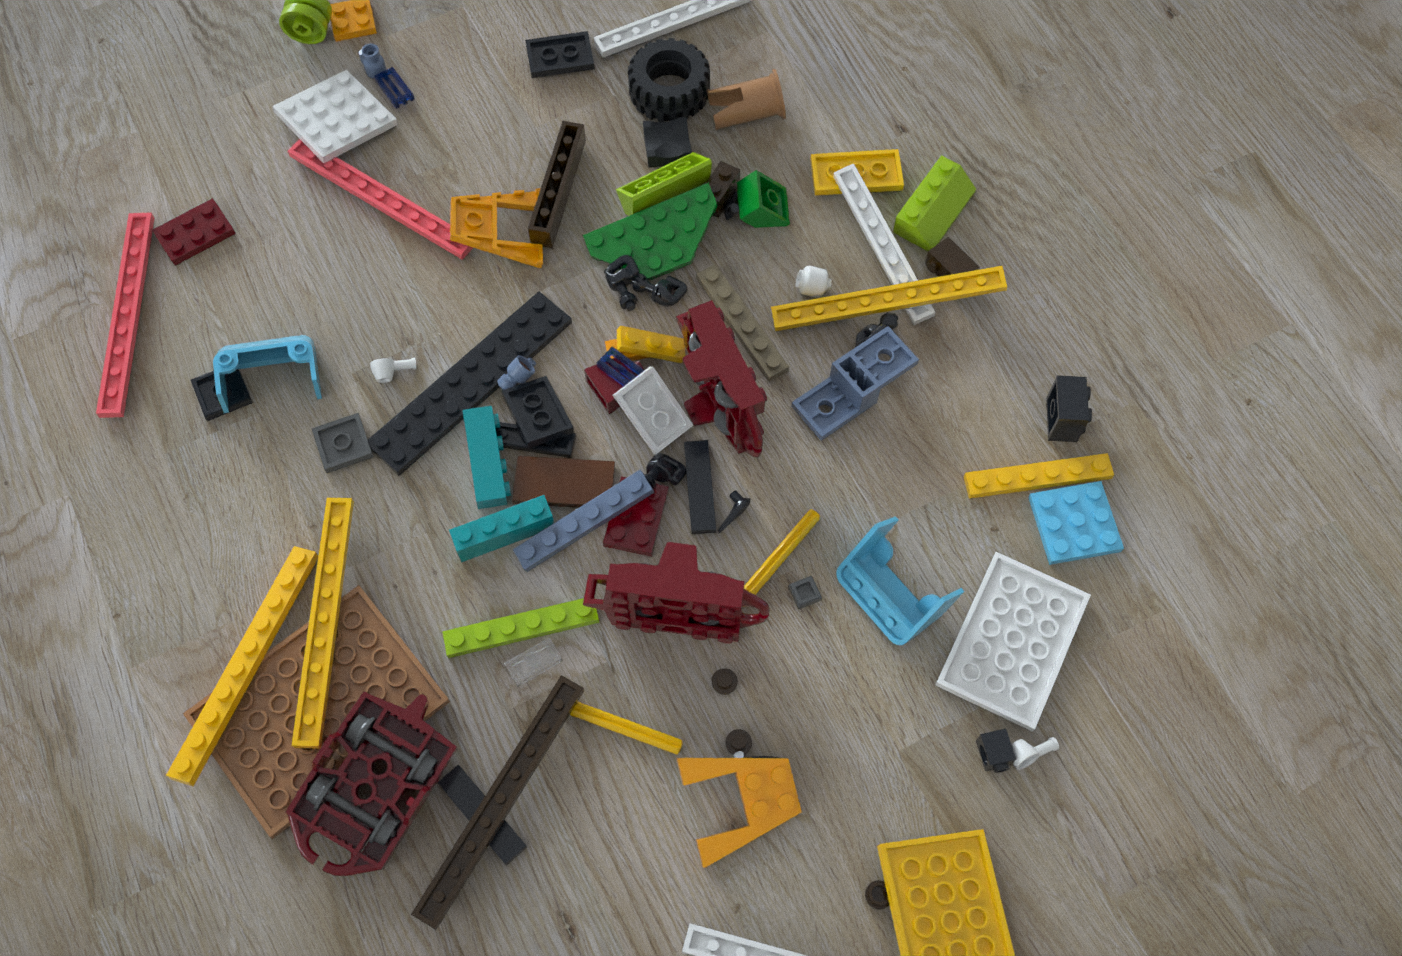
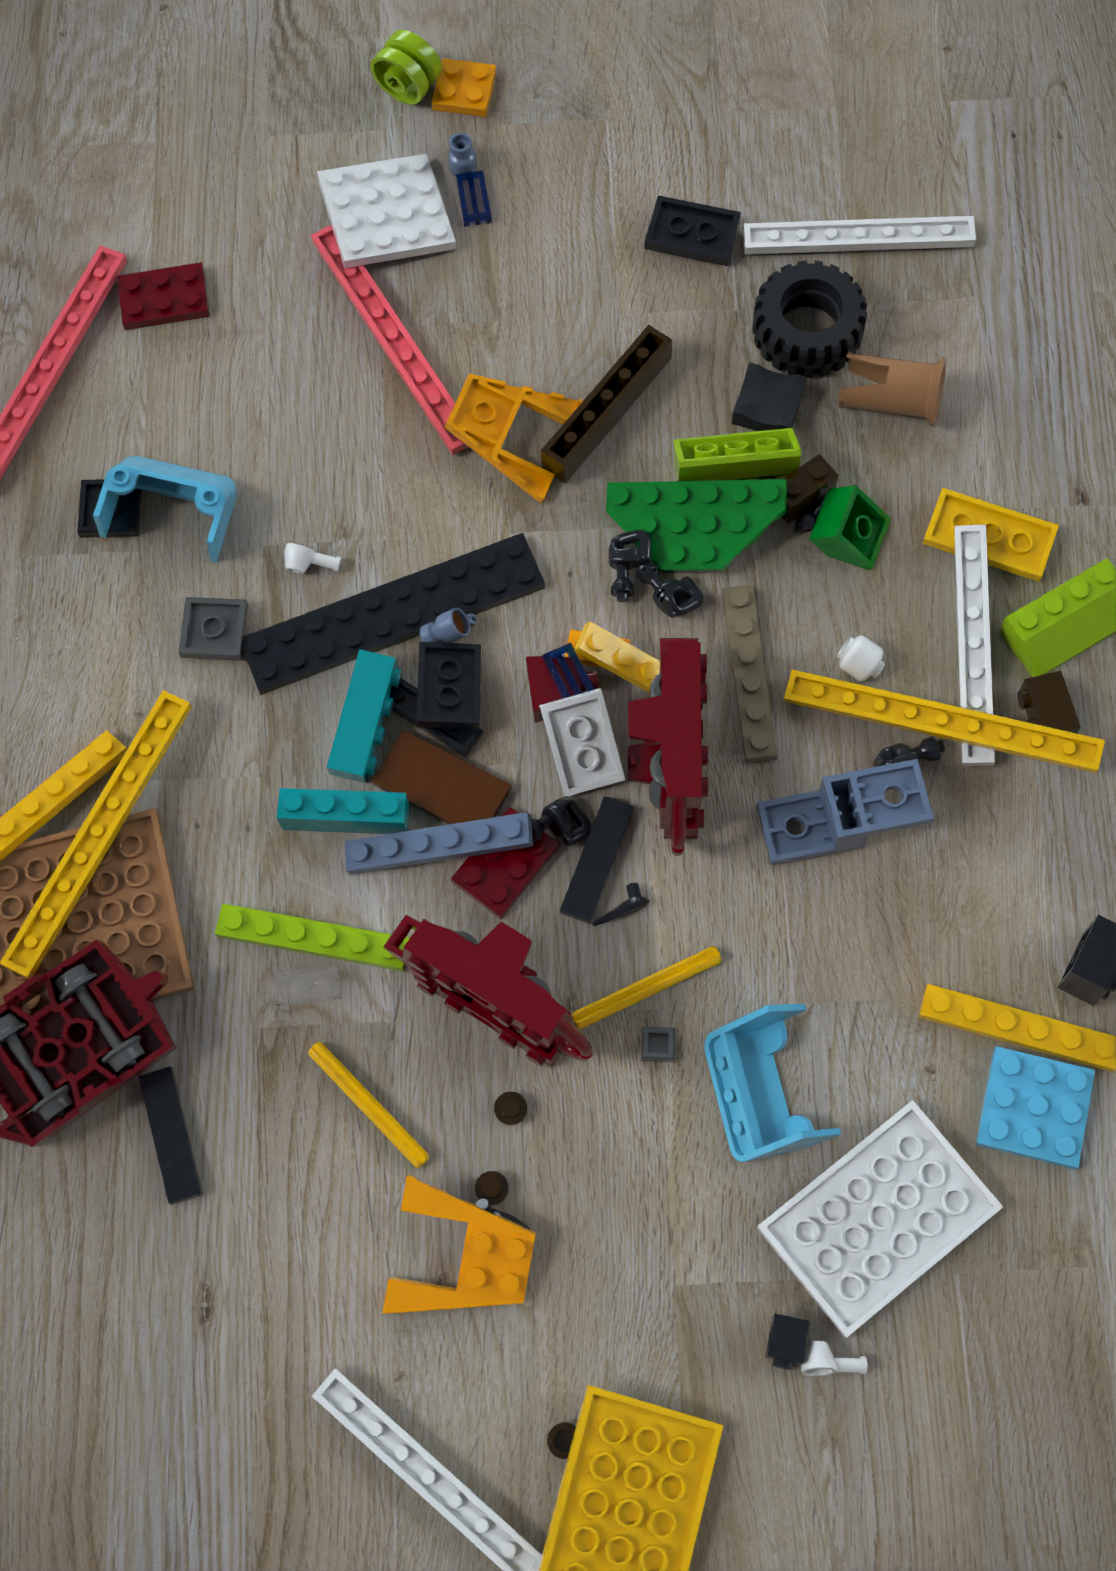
camera: 30 degrees right, 5 degrees up
(497, 803) = (192, 1129): dark brown plate -> none

